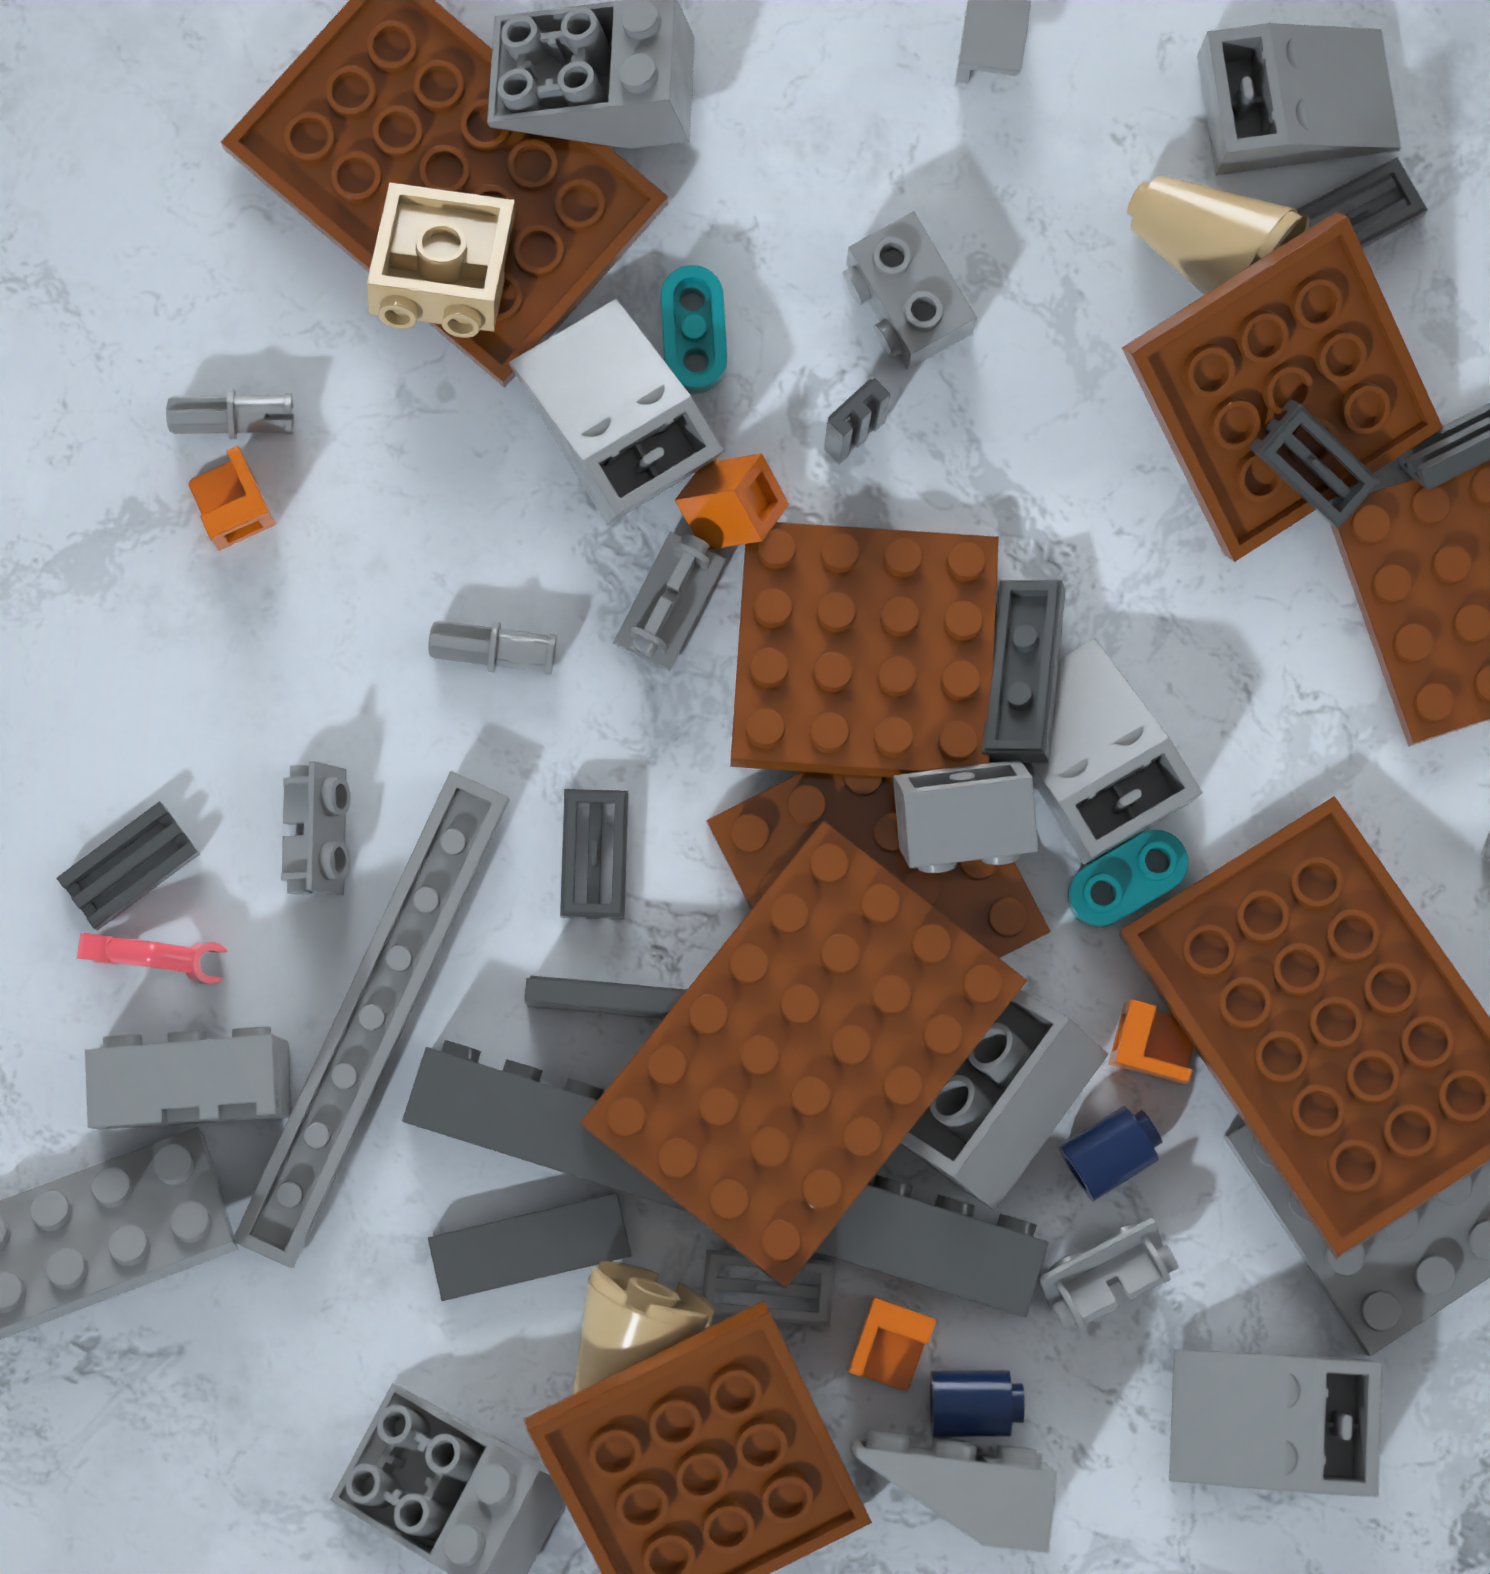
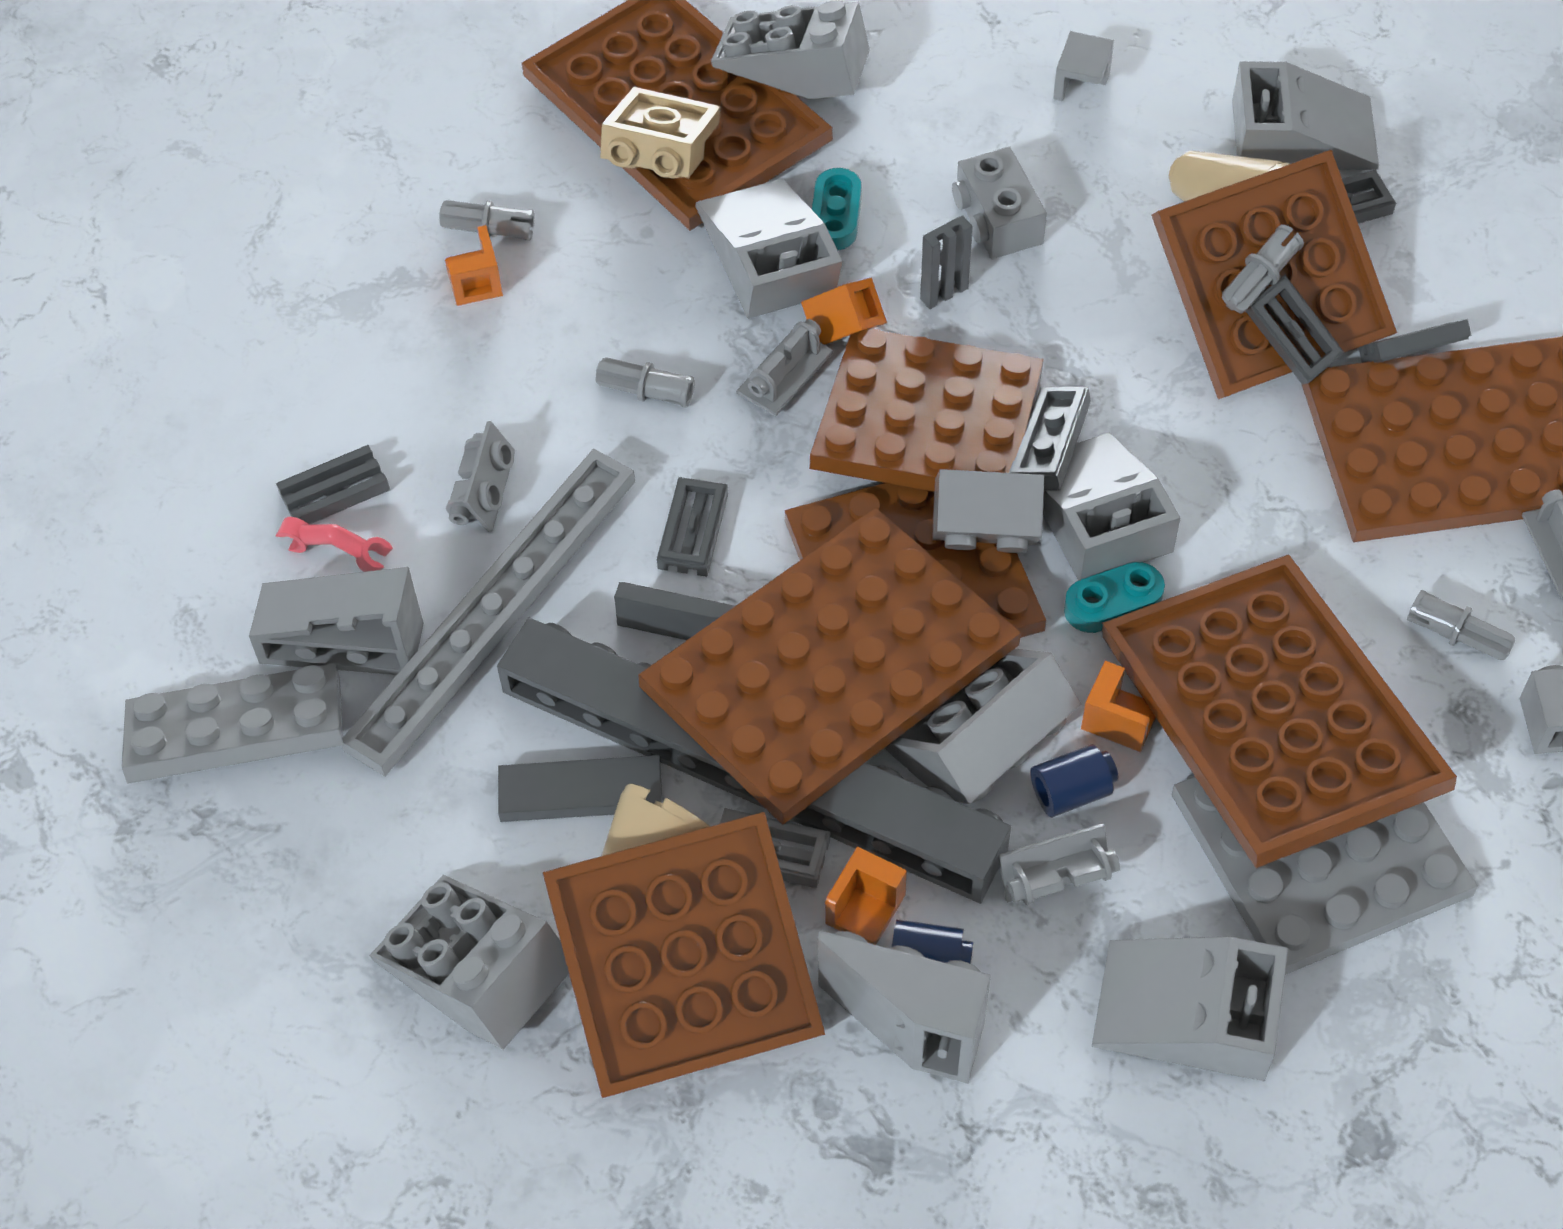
camera: 15 degrees right, 25 degrees down
(1271, 406) = (1261, 270): none -> light grey axle

